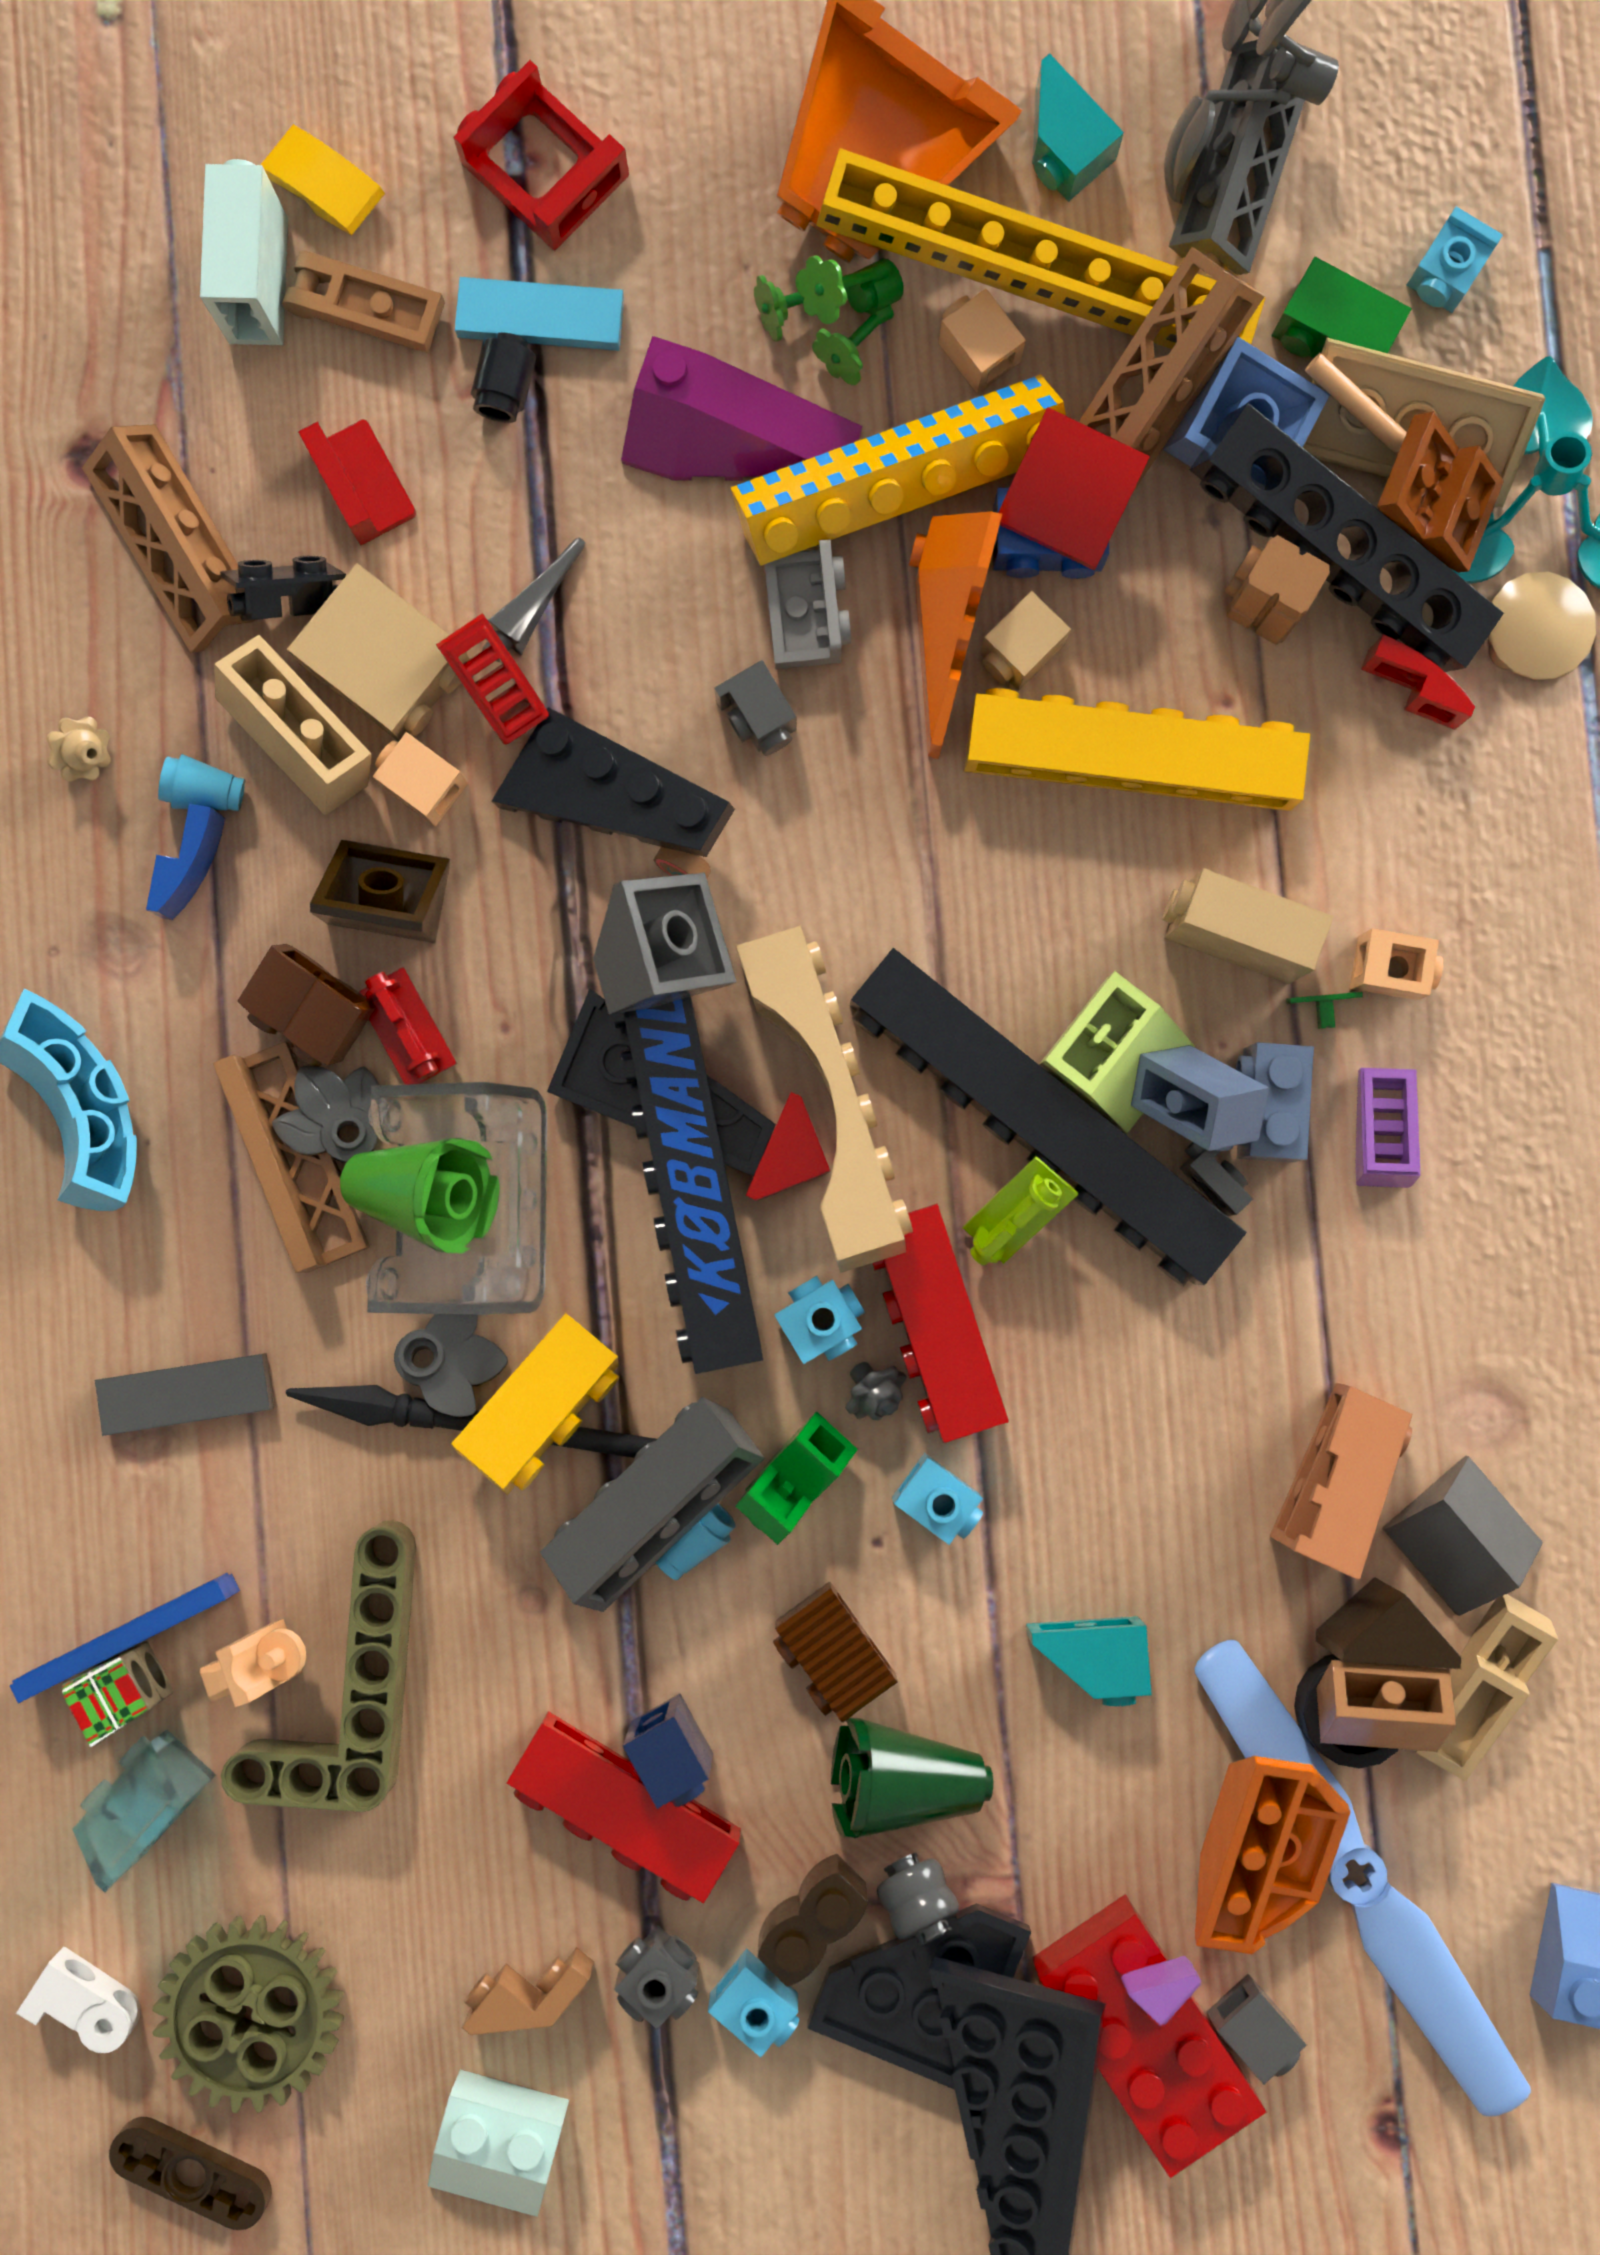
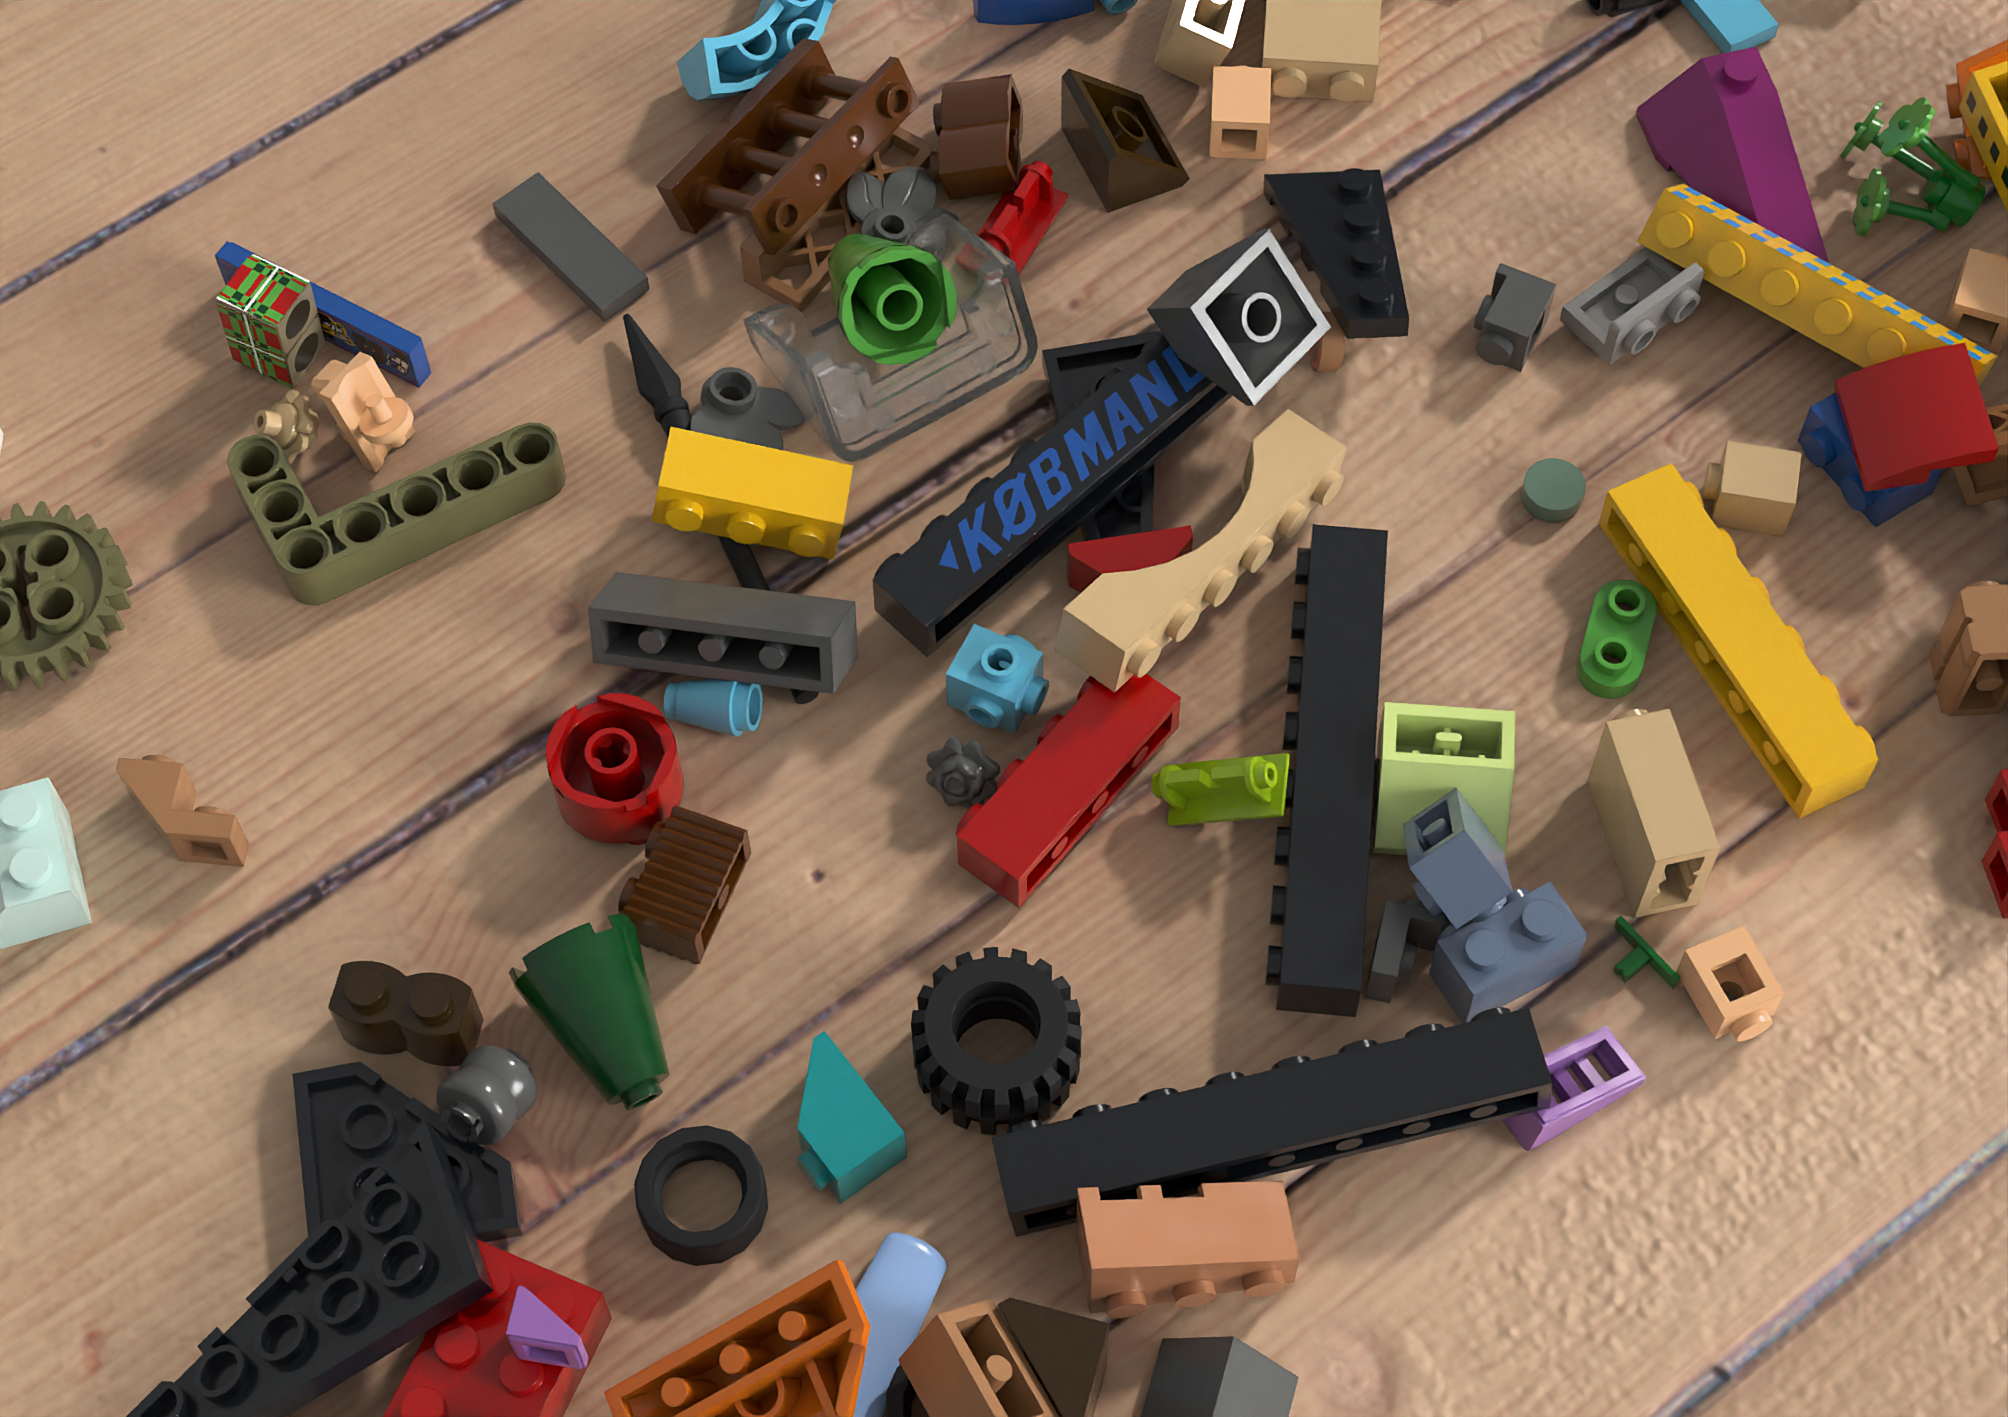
camera: 60 degrees right, 25 degrees down
(139, 1806) = (173, 405): clear light blue slope -> none
(176, 1182) = (764, 121): none -> reddish brown fence
(220, 1725) = (289, 424): none -> tan plant
(514, 709) = (1381, 134): red slope -> none
(521, 615) = (1442, 110): dark grey piece -> none
(607, 1800) = (414, 791): red brick -> none
(660, 1959) = (264, 907): dark grey brick -> none
(669, 1753) = (497, 778): dark blue brick -> none
(706, 1685) = (614, 768): none -> red brick
(754, 2004) = (288, 1014): medium azure brick -> none
(796, 1477) = (832, 752): green brick -> none
(919, 786) = (1553, 489): none -> sand green tile
(939, 1500) = (897, 886): medium azure brick -> none
(948, 590) = (1747, 401): orange wedge -> none
(1067, 835) = (1617, 634): none -> bright green plate
(1113, 1820) = (689, 1146): none -> black tyre
(1150, 1537) = (996, 990): none -> black tyre
(1299, 1361) = (1277, 1118): none -> black brick

